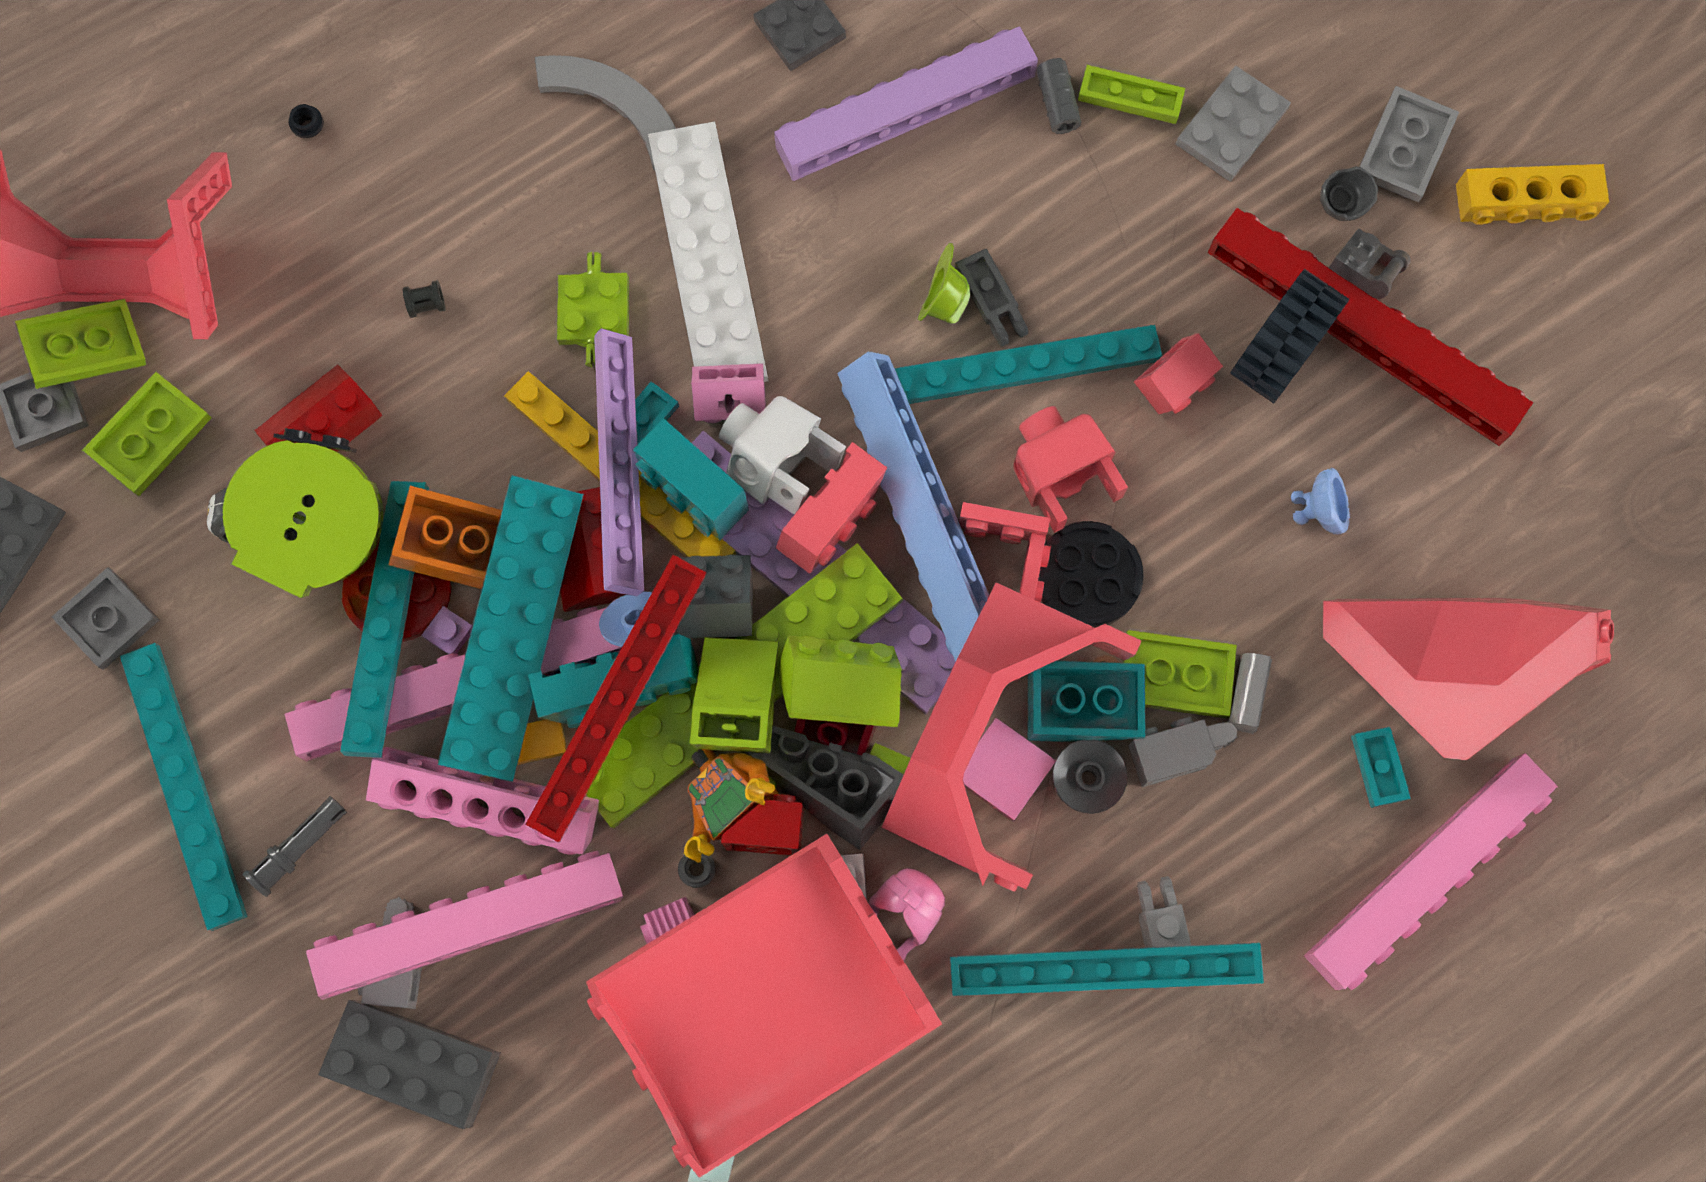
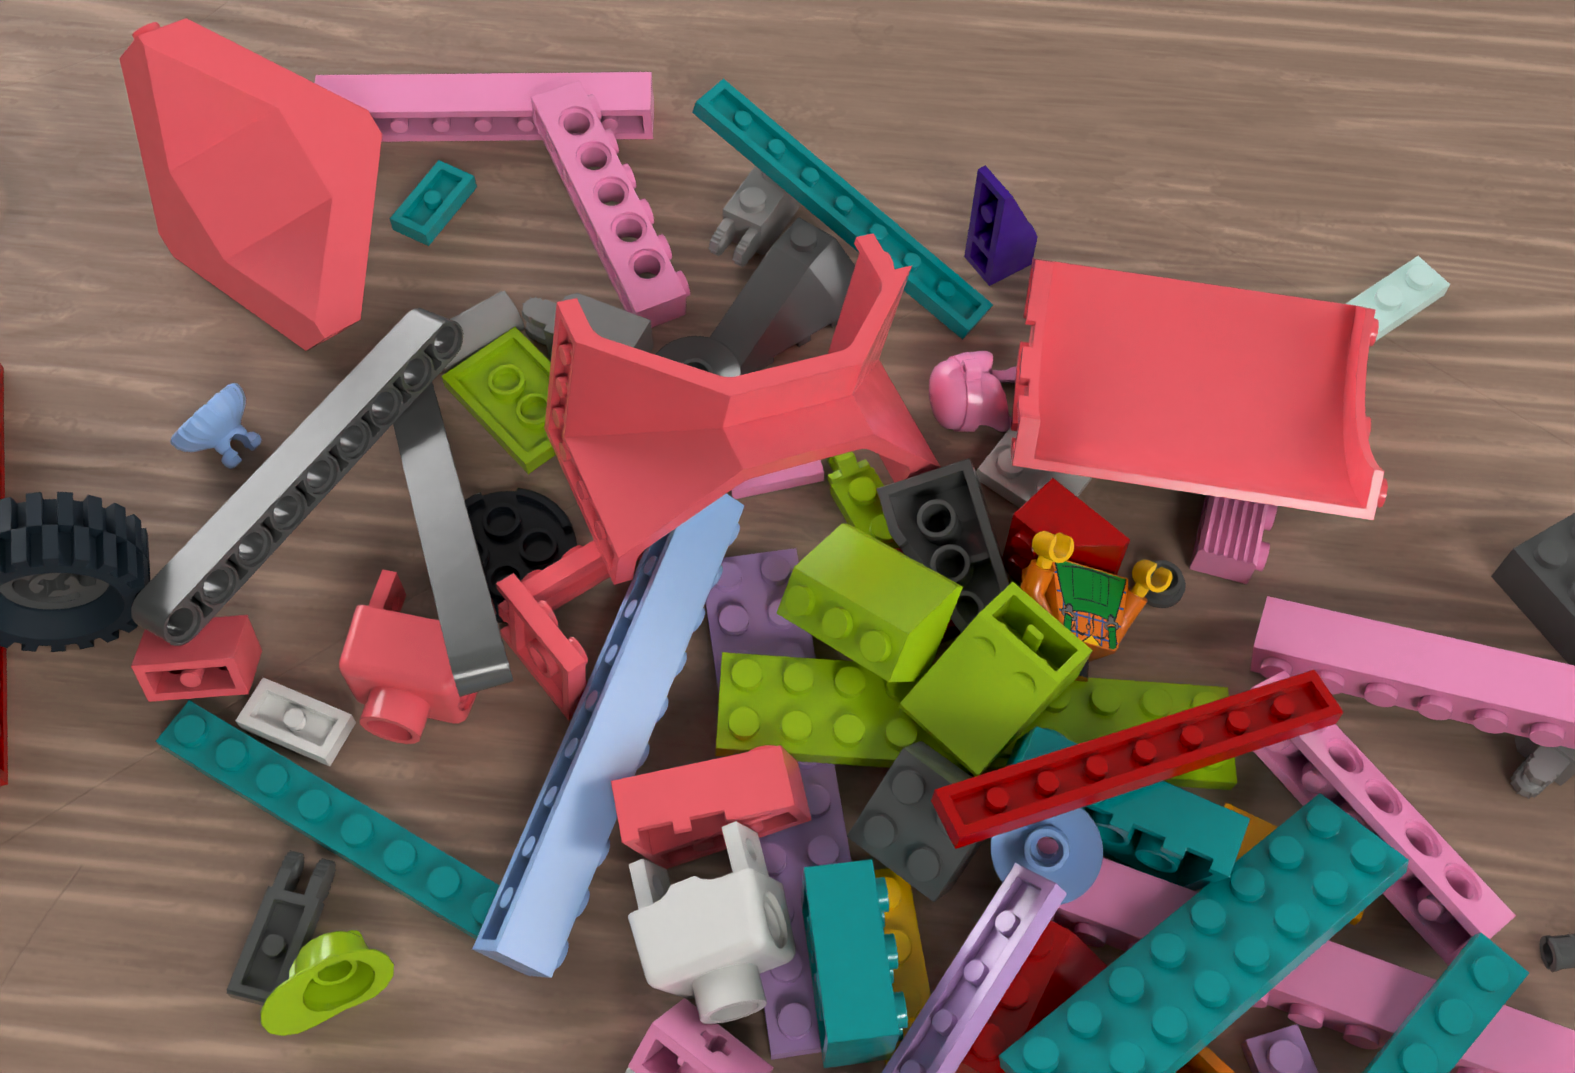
camera: 140 degrees left, 15 degrees down
(987, 1051) = (998, 232): none -> dark purple slope
(1084, 888) = (787, 297): none -> dark grey wedge
(1096, 391) = (296, 721): none -> white plate
(1118, 535) = (450, 549): none -> beam
(1233, 509) = (296, 478): none -> dark grey beam
(1356, 874) = (570, 110): none -> bright pink brick

